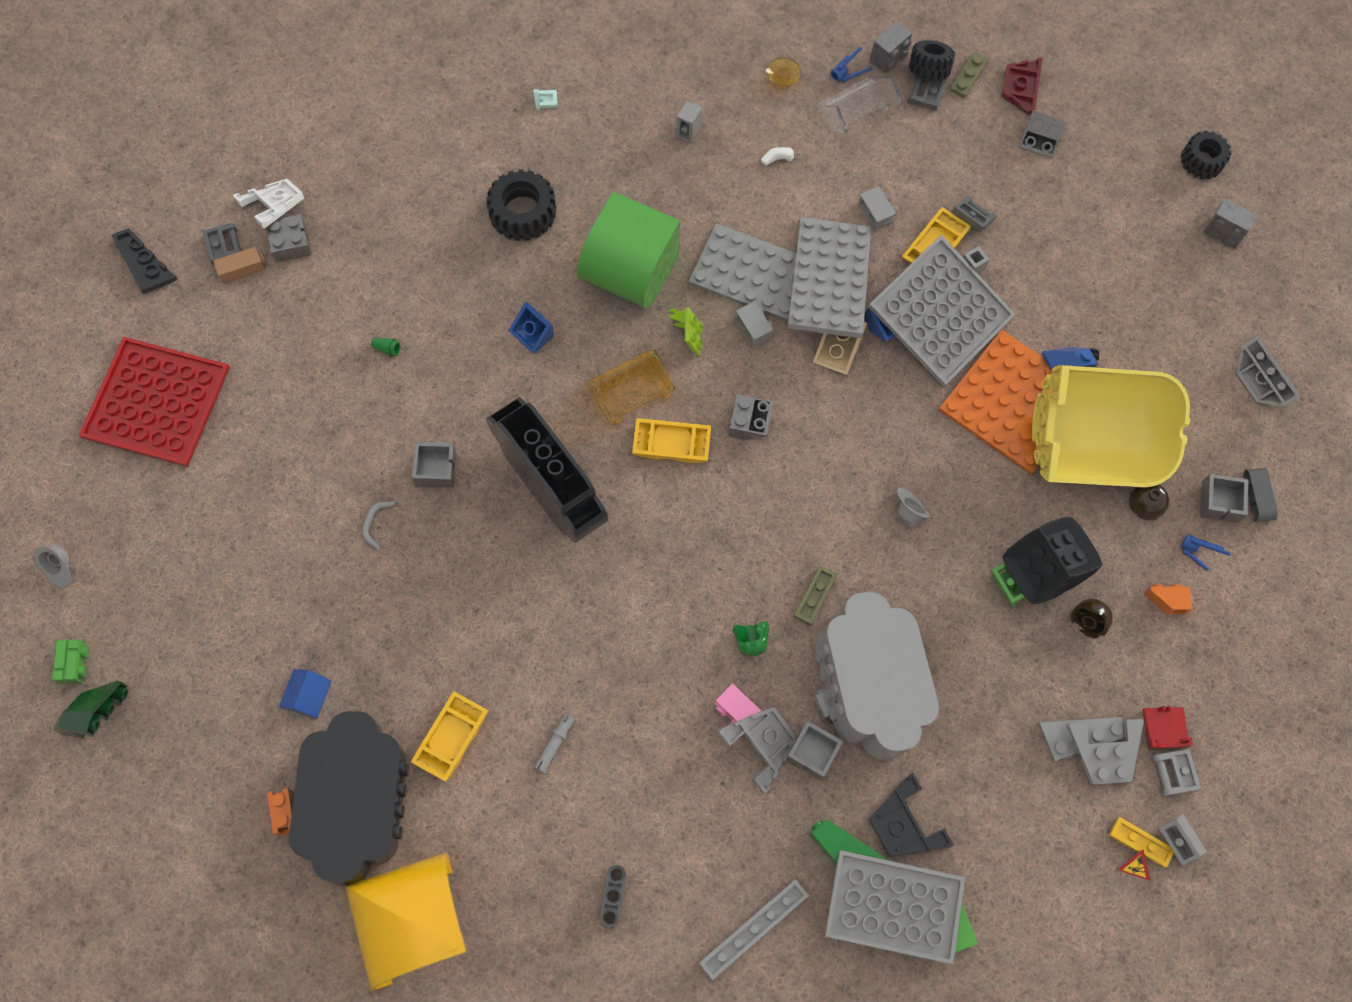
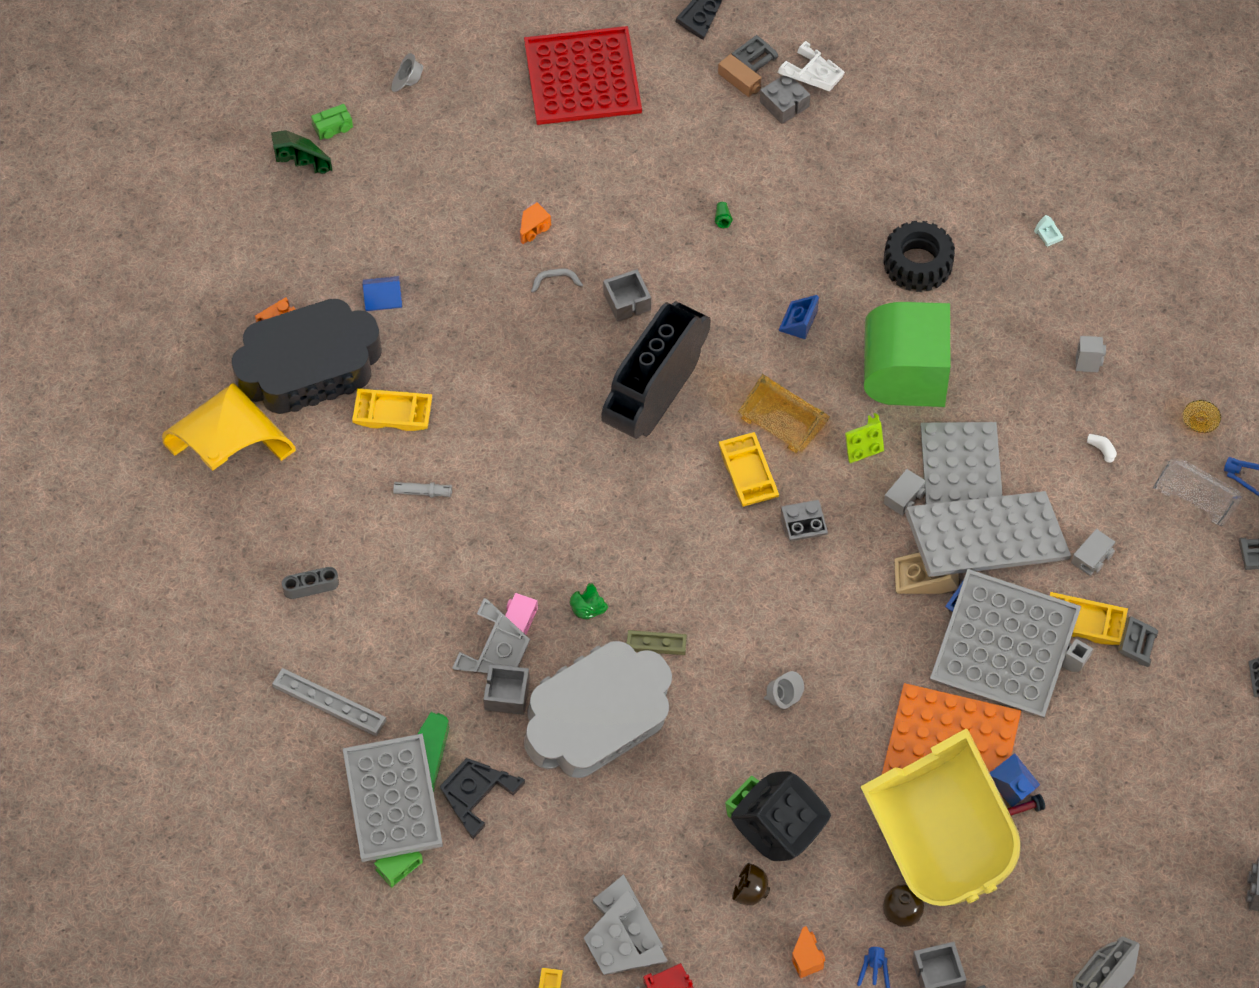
camera: 70 degrees right, 10 degrees down
(301, 515) = (534, 221): none -> orange slope

